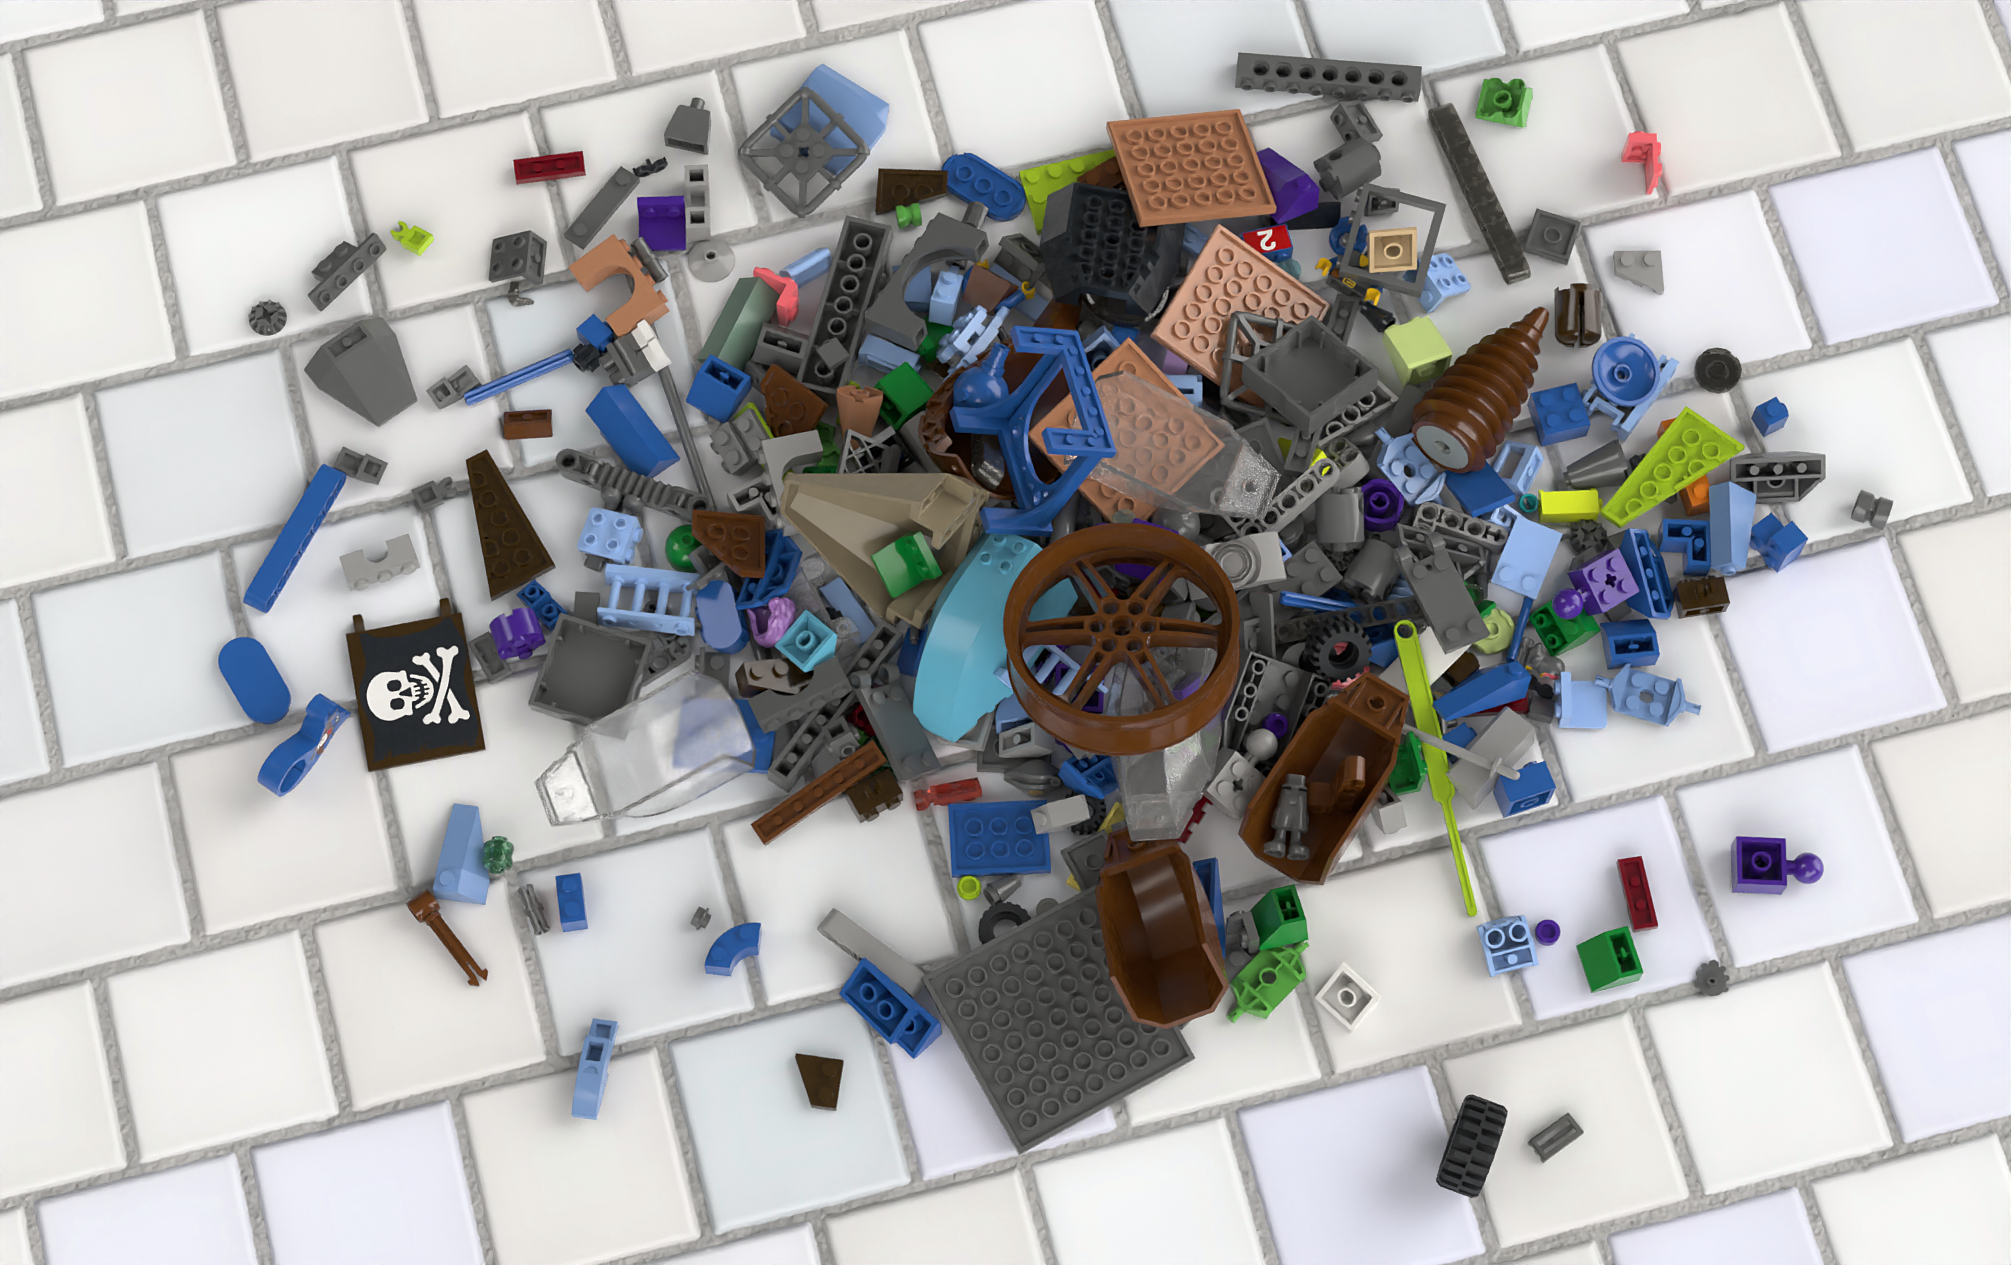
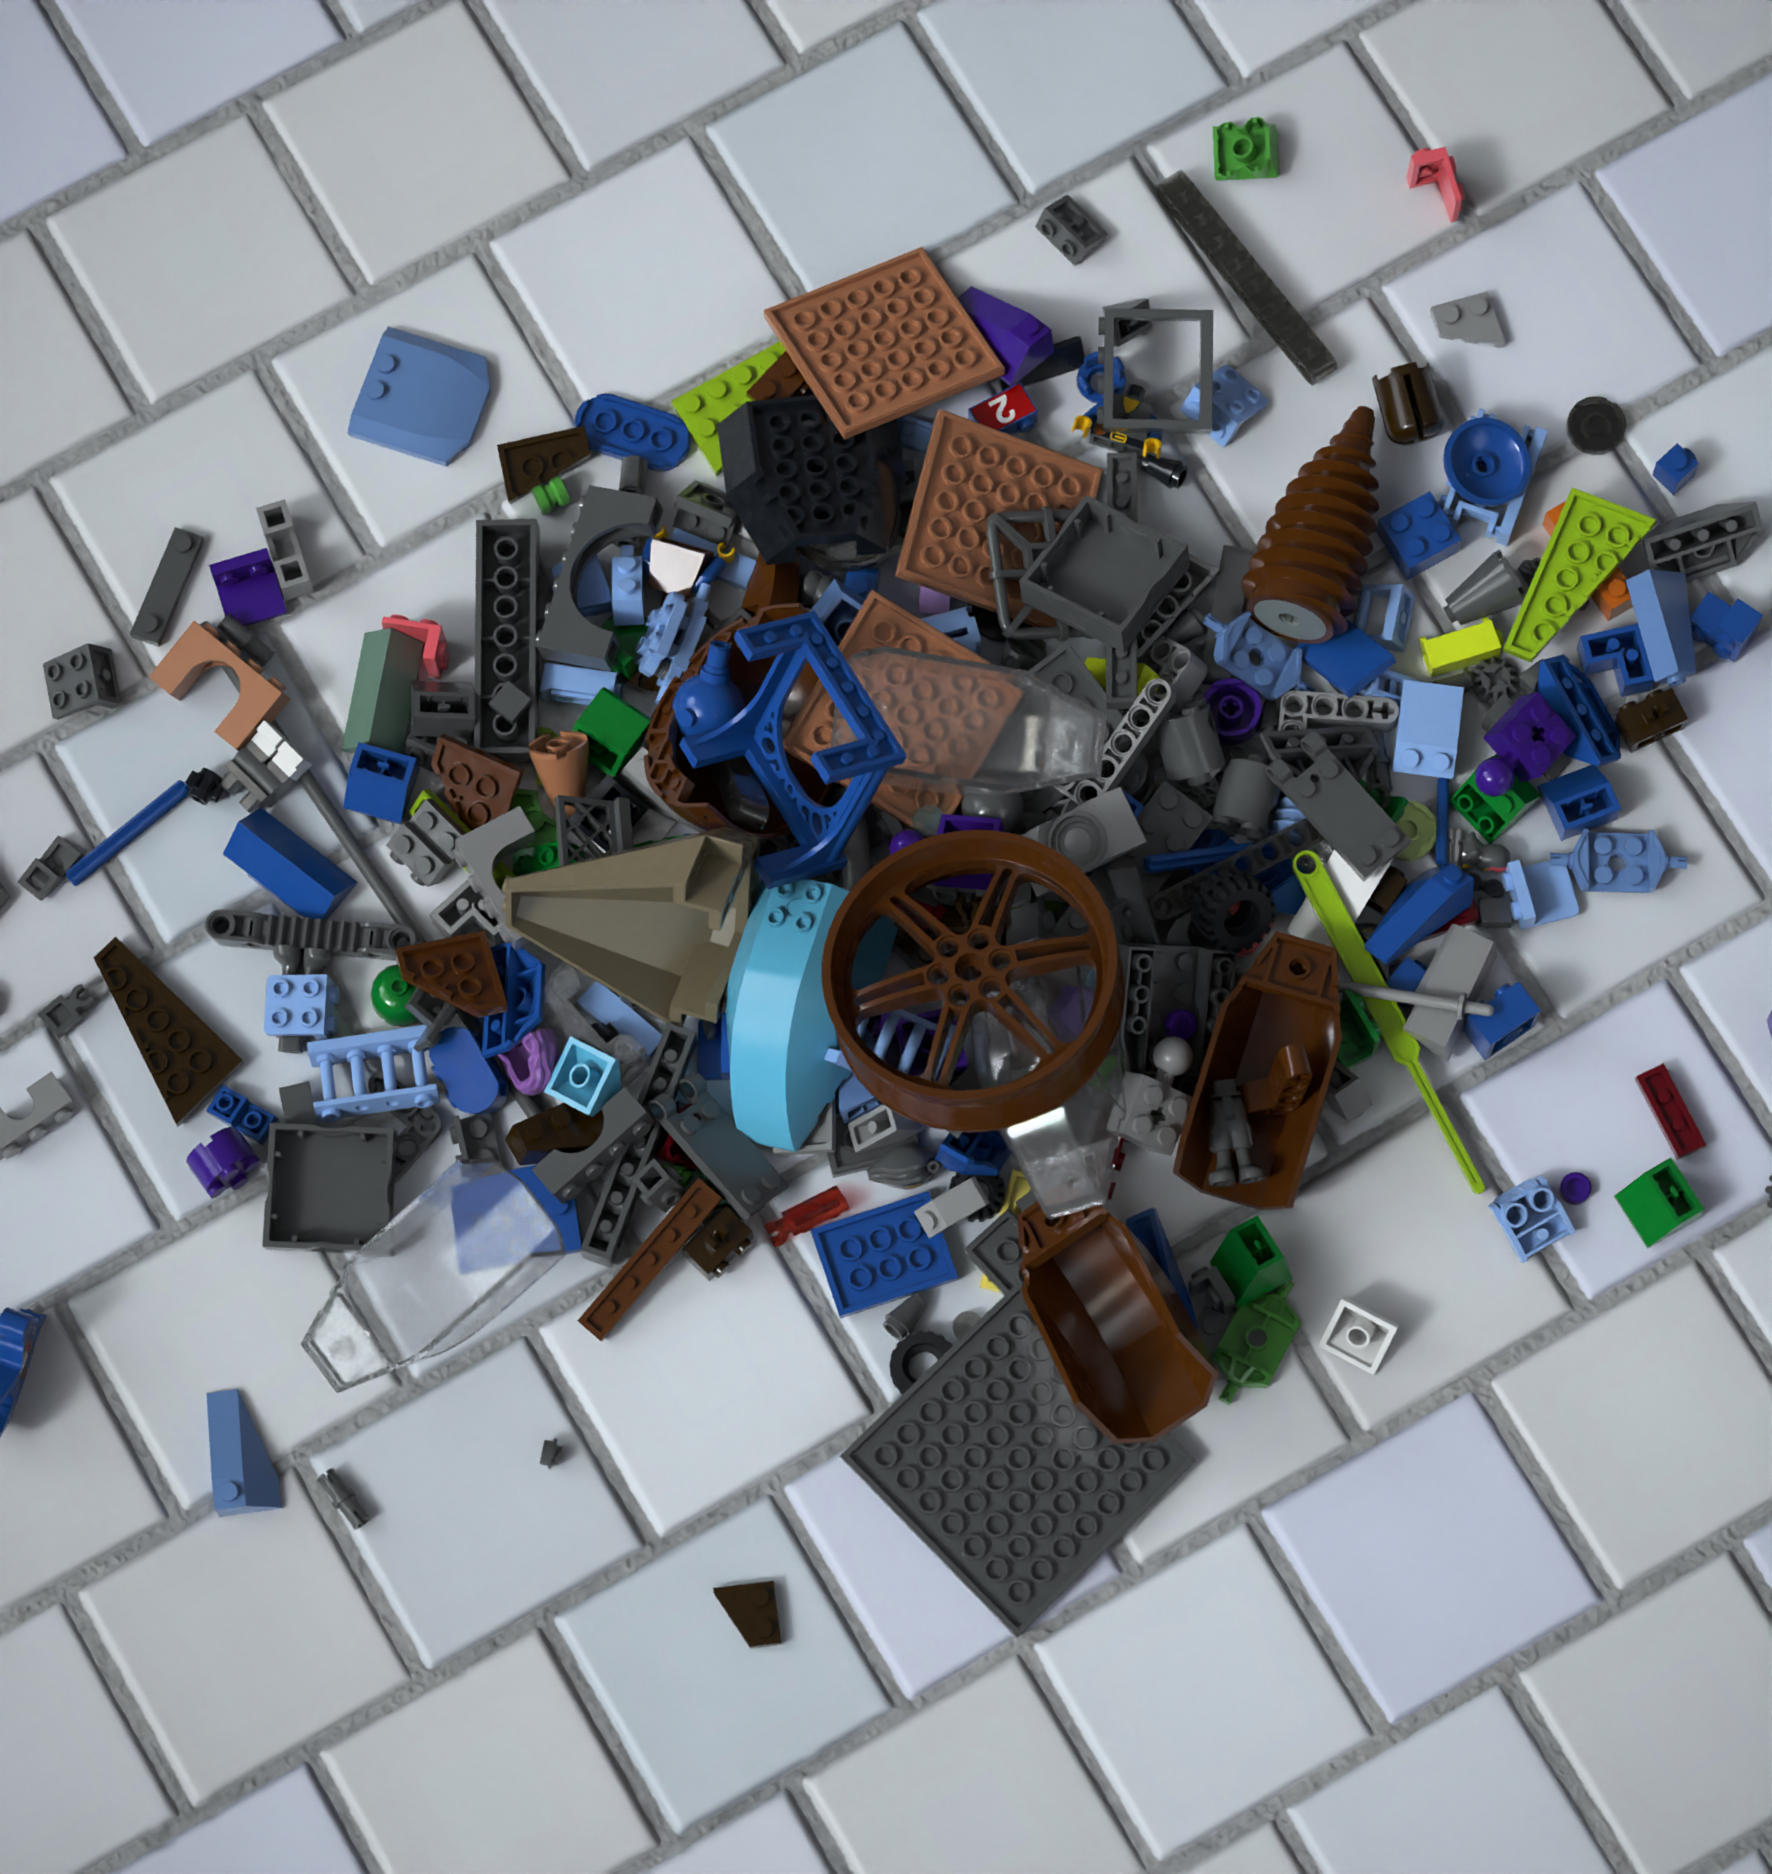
camera: 10 degrees left, 5 degrees up
(415, 690) = (117, 1265): flag -> none
(426, 910) = (213, 1535): reddish brown piece -> none
(488, 658) = (196, 1201): dark grey plate -> none
(498, 855) = (280, 1443): clear green piece -> none
(513, 296) = (90, 730): clear smoke animal -> none
(528, 424) = (156, 889): reddish brown slope -> none
(549, 167) = (86, 553): dark red plate -> none
(571, 902) = (387, 1478): blue brick -> none
(592, 1069) = (475, 1676): medium blue slope -> none
(595, 333) = (207, 752): blue brick -> none
(646, 170) = (209, 523): black piece -> none
(690, 128) = (247, 454): dark grey torso -> none
(711, 269) = (322, 631): light grey dish -> none
(732, 947) = (600, 1479): blue brick -> none
(804, 167) = (379, 453): dark grey plate -> none
(808, 267) = (445, 595): light blue tile -> none
(861, 944) = (770, 1440): light grey beam -> none
(890, 1009) = (812, 1503): blue slope -> none
(905, 563) = (676, 946): green bracket -> none
(968, 888) = (864, 1326): lime plate -> none
(1291, 267) = (1040, 435): clear light blue tile -> none
(1337, 70) = (1032, 165): dark grey brick -> none
(1348, 167) = (1078, 288): dark grey cylinder -> none
(1392, 249) = (1162, 387): tan slope -> none
(1416, 351) = (1224, 501): yellowish green slope -> none
(1472, 1146) = (1557, 1480): black tyre -> none
(1531, 500) = (1414, 654): teal hinge -> none
(1539, 1150) = (1636, 1458): dark grey tile -> none
(1551, 236) = (1350, 309): dark grey plate -> none

